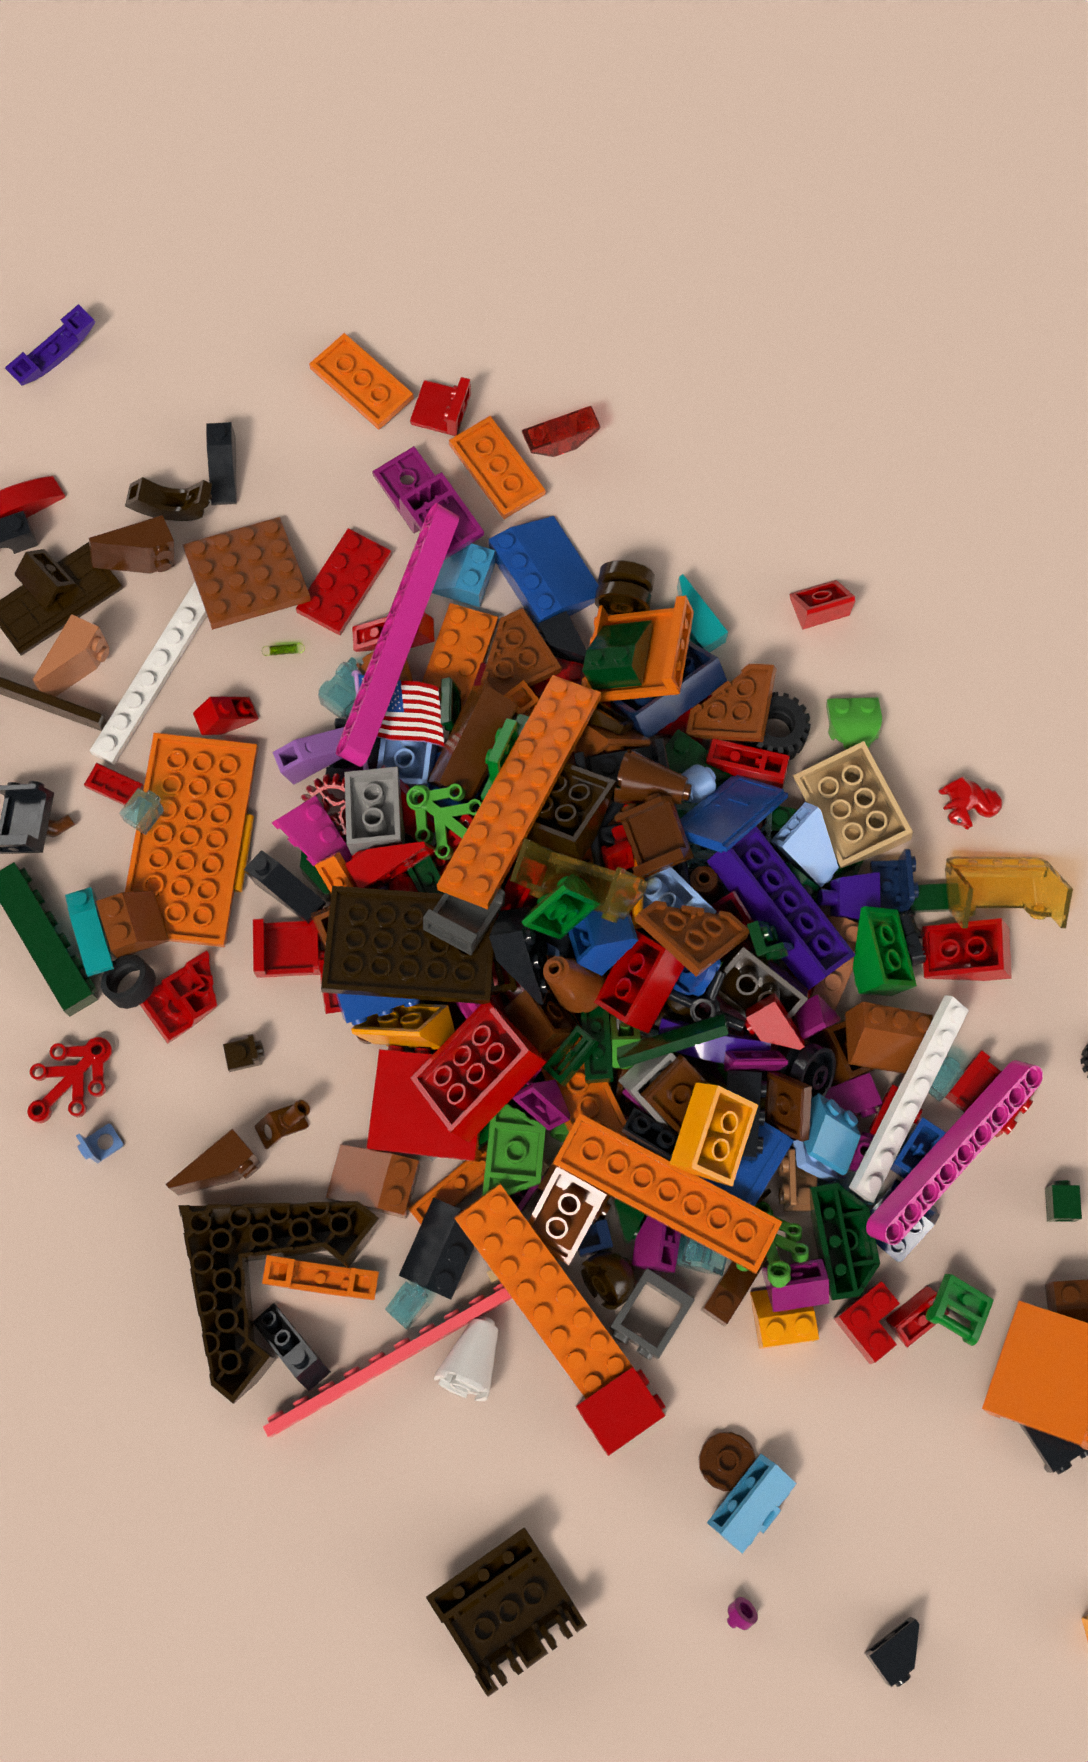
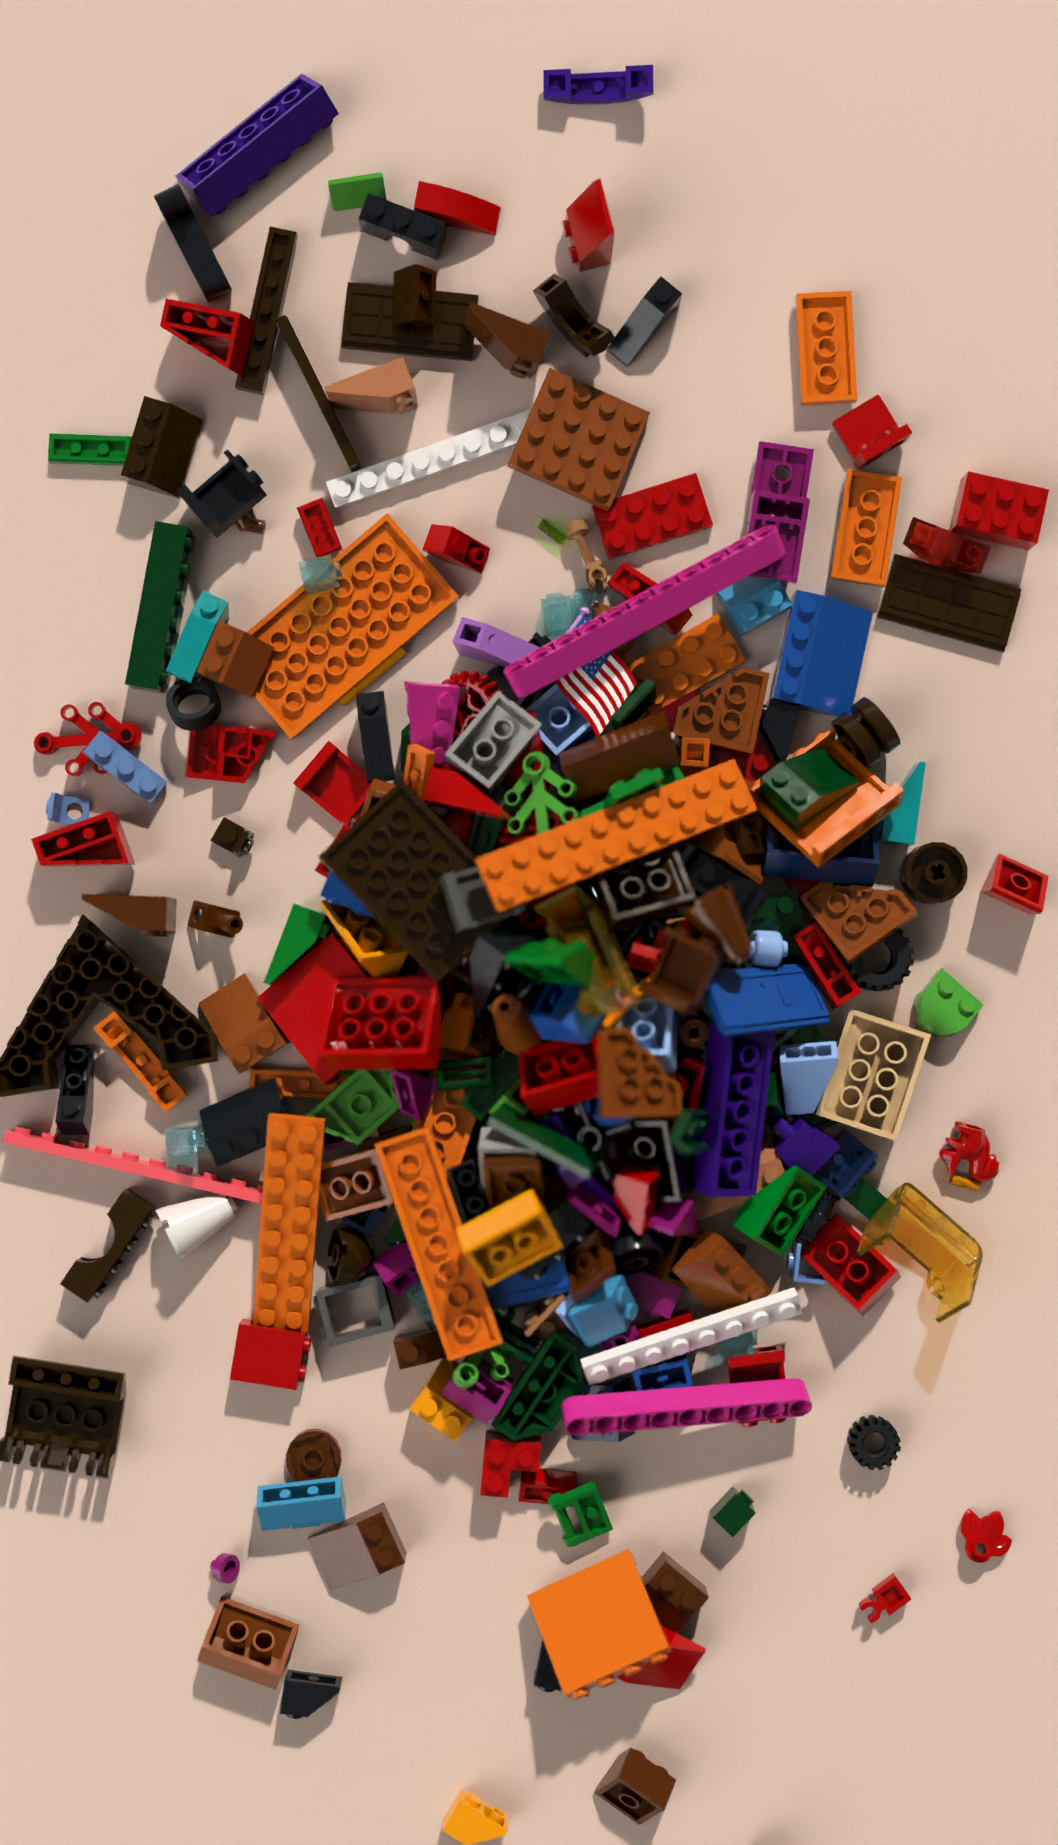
camera: 35 degrees right, 15 degrees up
(116, 1072) = (124, 767): none -> medium blue plate
(129, 432) = (590, 229): none -> red slope
(135, 1154) = (85, 843): none -> red wedge
(301, 632) = (594, 569): none -> medium nougat bar
(359, 1072) = (300, 935): none -> green slope
(427, 1482) = (88, 1274): none -> dark brown arch
(574, 381) = (999, 510): none -> red brick
(598, 467) = (949, 603): none -> dark brown piece
(759, 638) = (949, 870): none -> dark brown wheel
(793, 1217) = (515, 1335): none -> dark green tile
(815, 1658) = (248, 1643): none -> dark orange slope
(825, 1499) = (358, 1547): none -> slope
(929, 987) = (792, 1263): none -> medium blue bracket
(986, 826) = (964, 1182): none -> light orange piece

